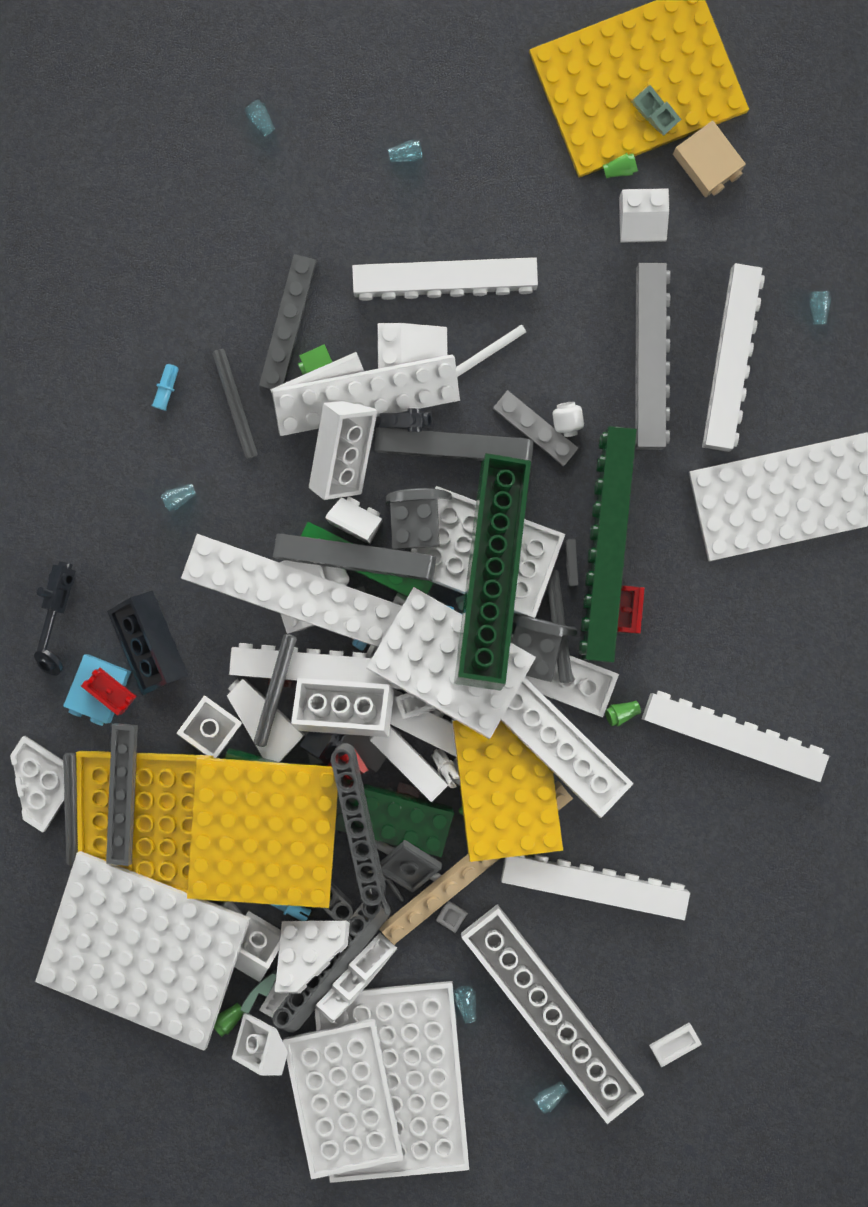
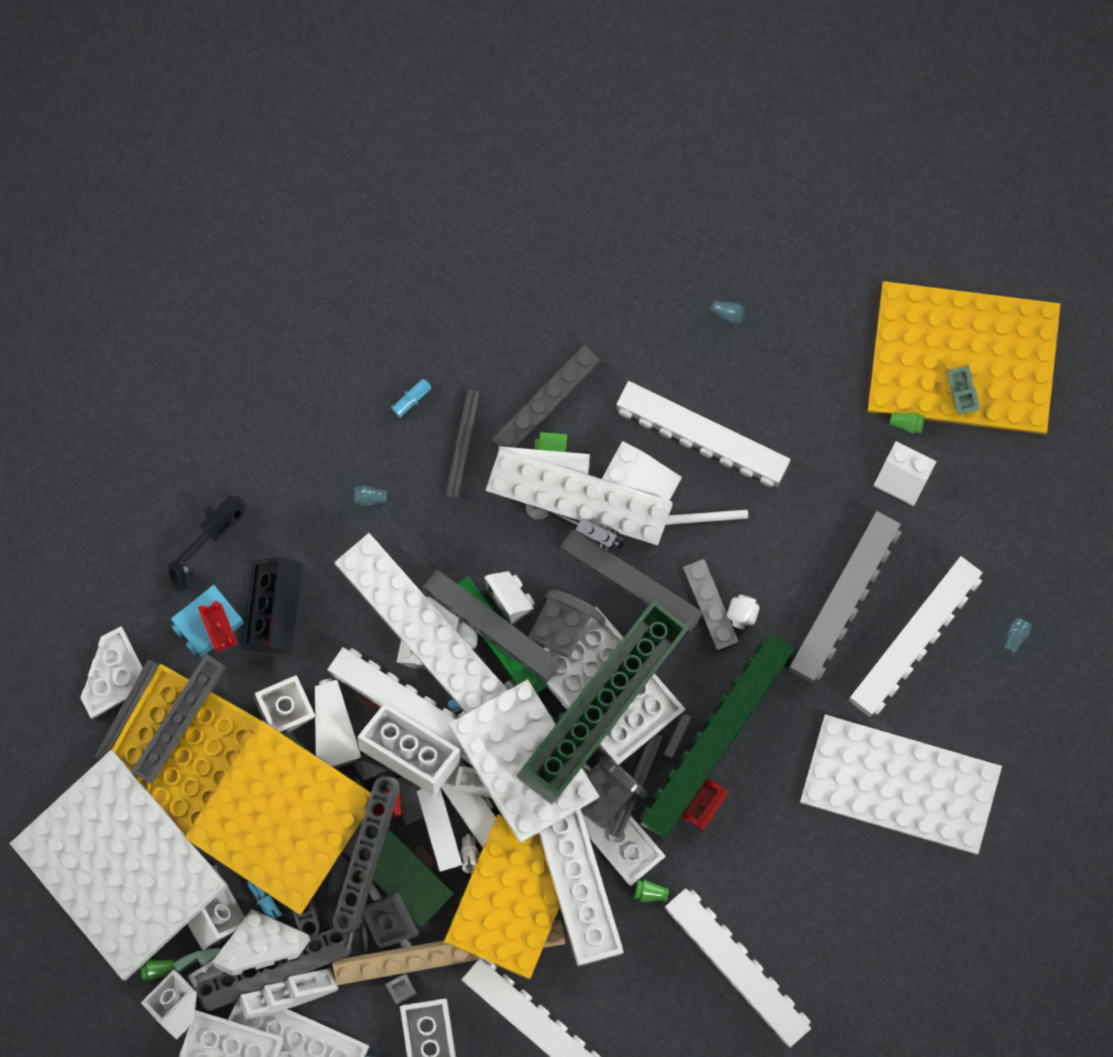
camera: 30 degrees right, 10 degrees down
(259, 116) = (619, 215): clear light blue cone -> none
(274, 690) = (359, 703): dark grey axle -> none
(342, 449) = (532, 531): white slope -> none
(709, 159) = (988, 457): tan brick -> none

